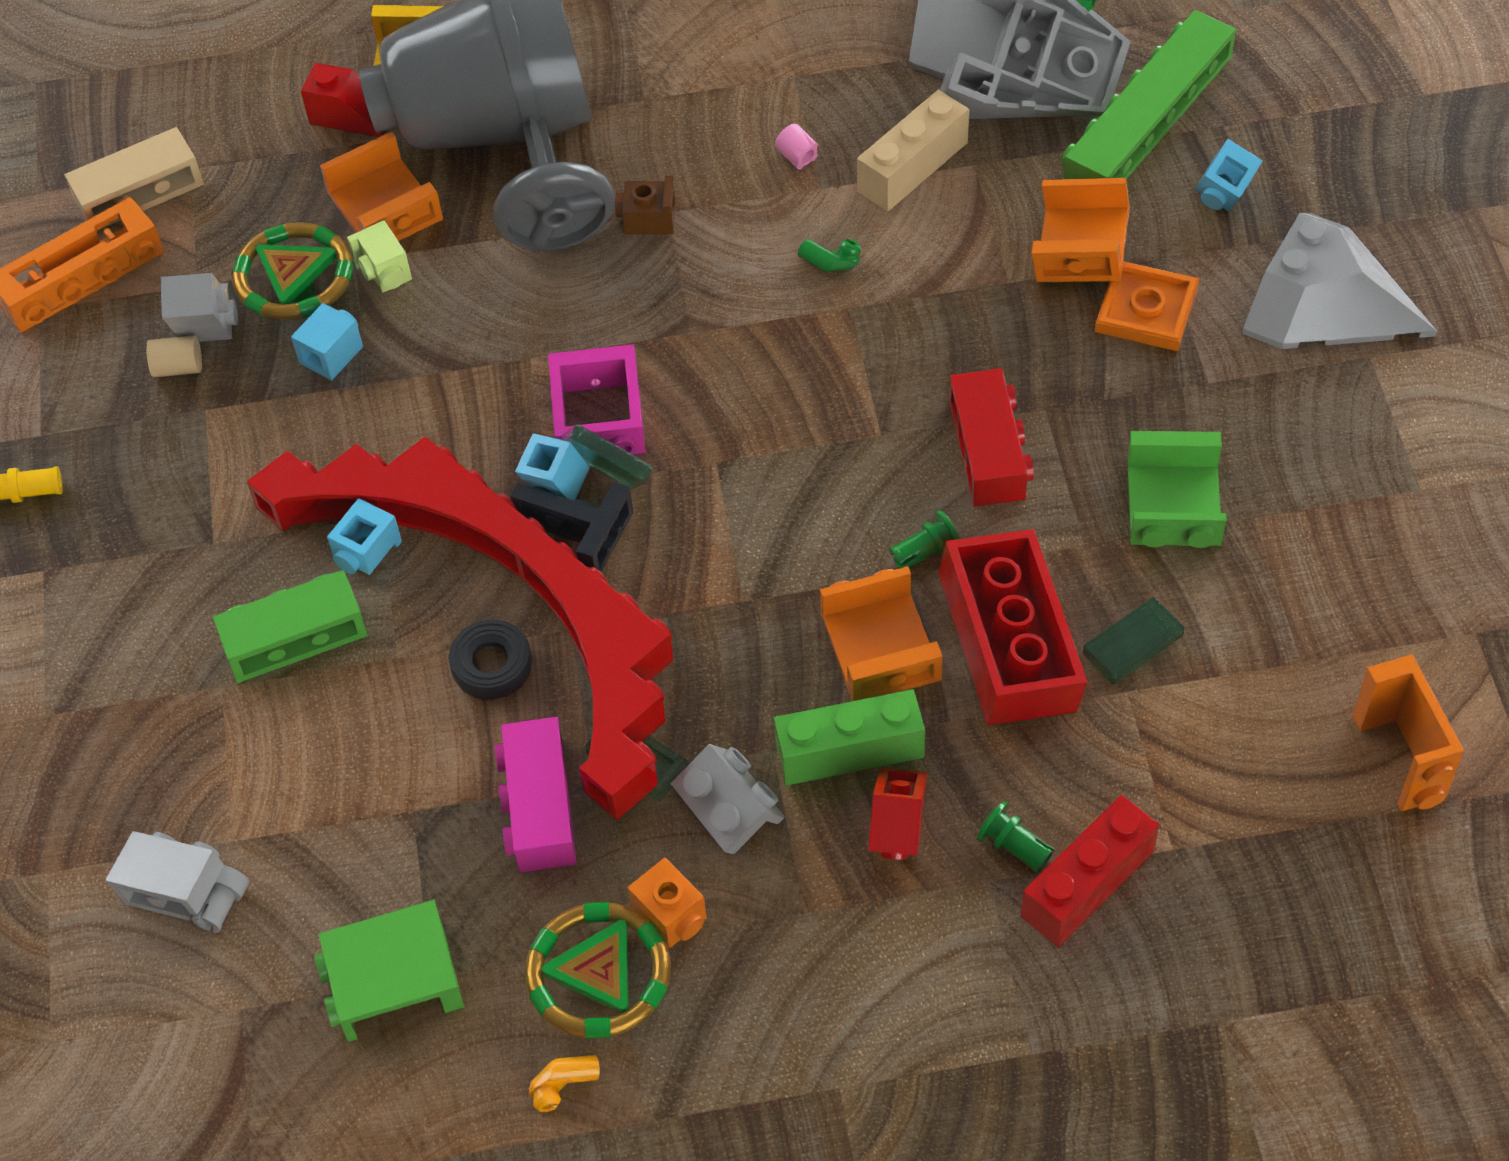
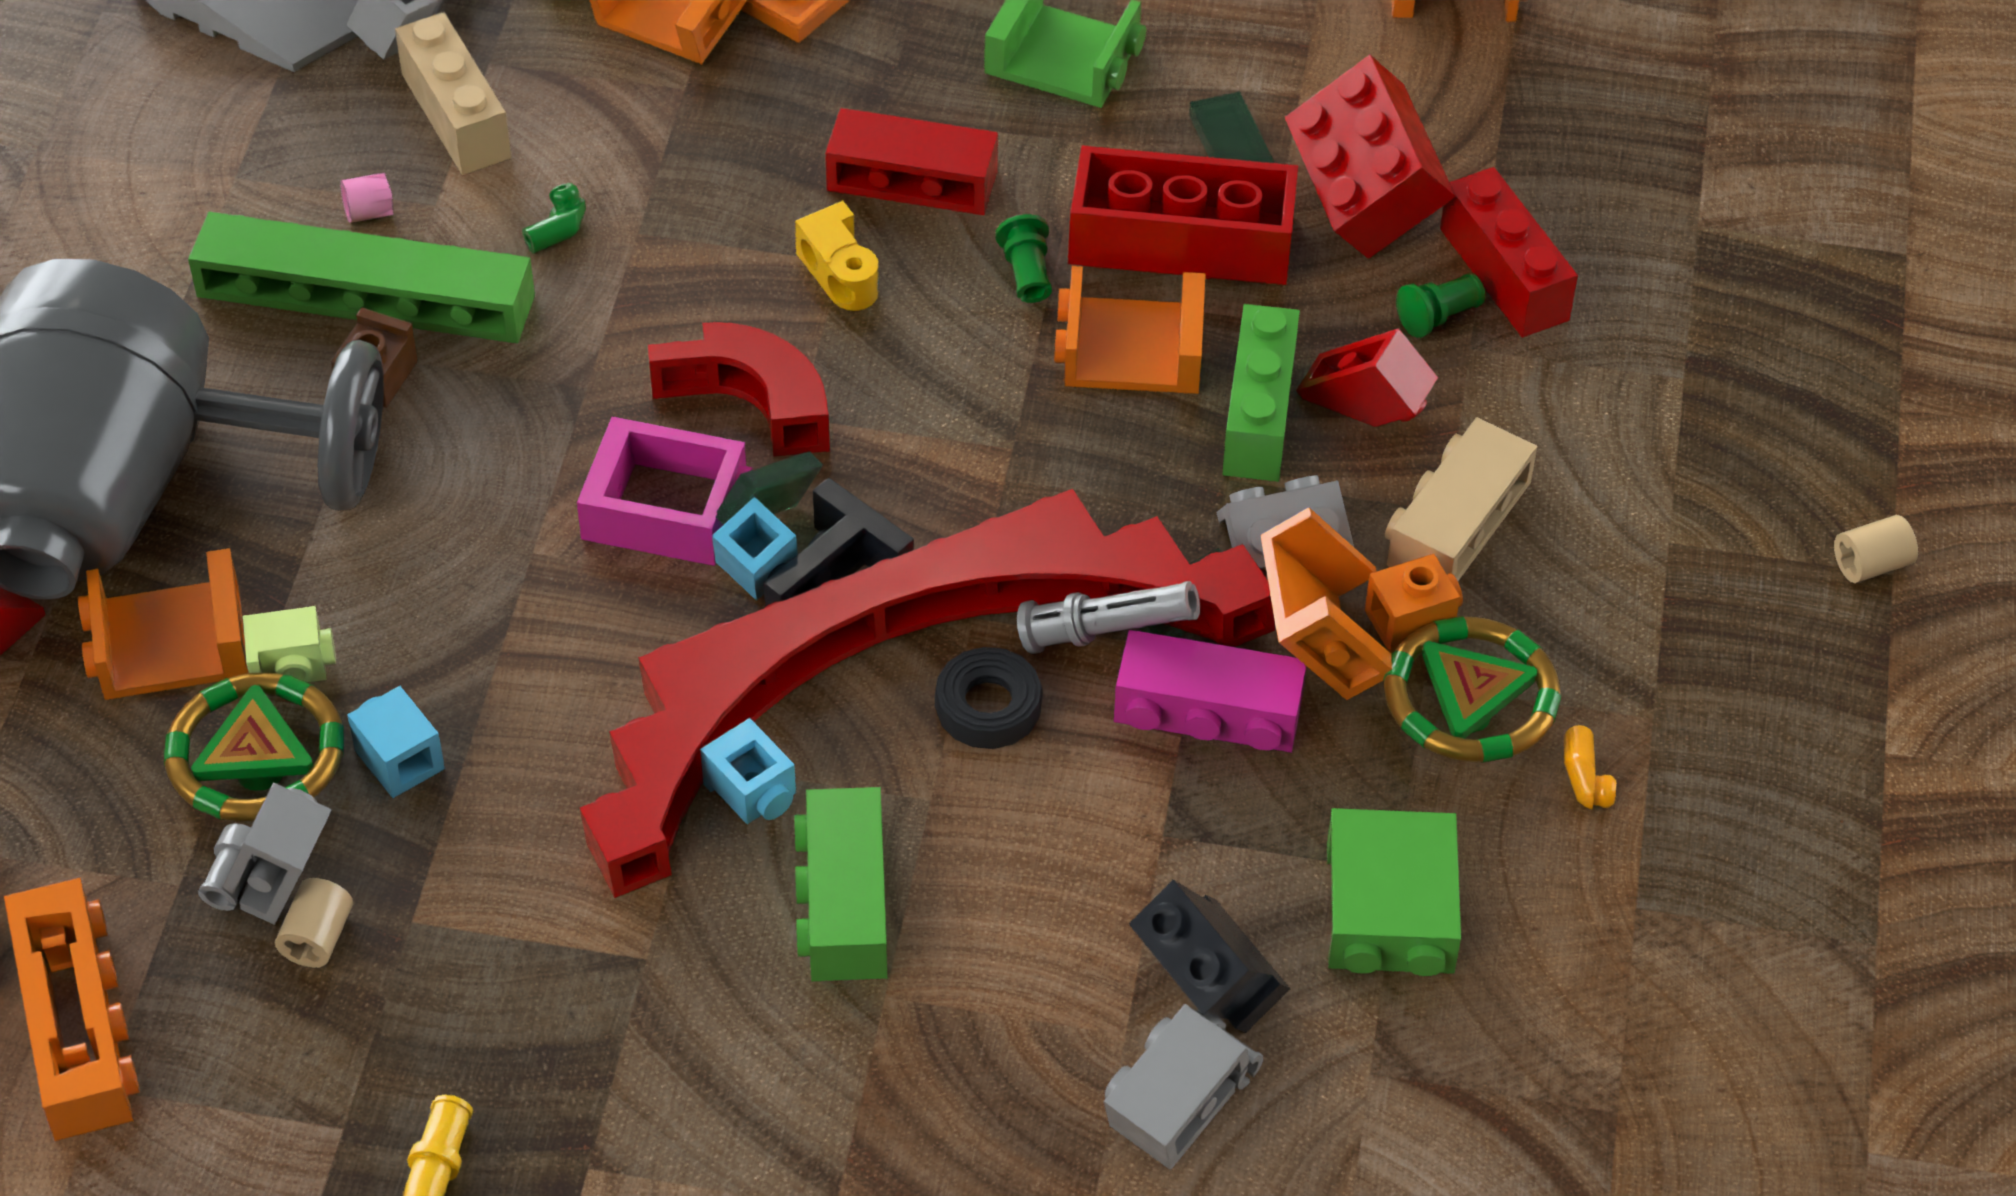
camera: 75 degrees left, 5 degrees down
(276, 859) = (1209, 956): none -> black hips
(564, 687) = (1082, 618): none -> light grey pin
(625, 831) = (1306, 575): none -> orange panel
(720, 174) = (346, 270): none -> bright green brick
(725, 435) = (752, 367): none -> red arch
(794, 913) = (1463, 499): none -> tan brick
(868, 424) = (835, 259): none -> yellow leg
(1128, 730) = (1369, 157): none -> red brick

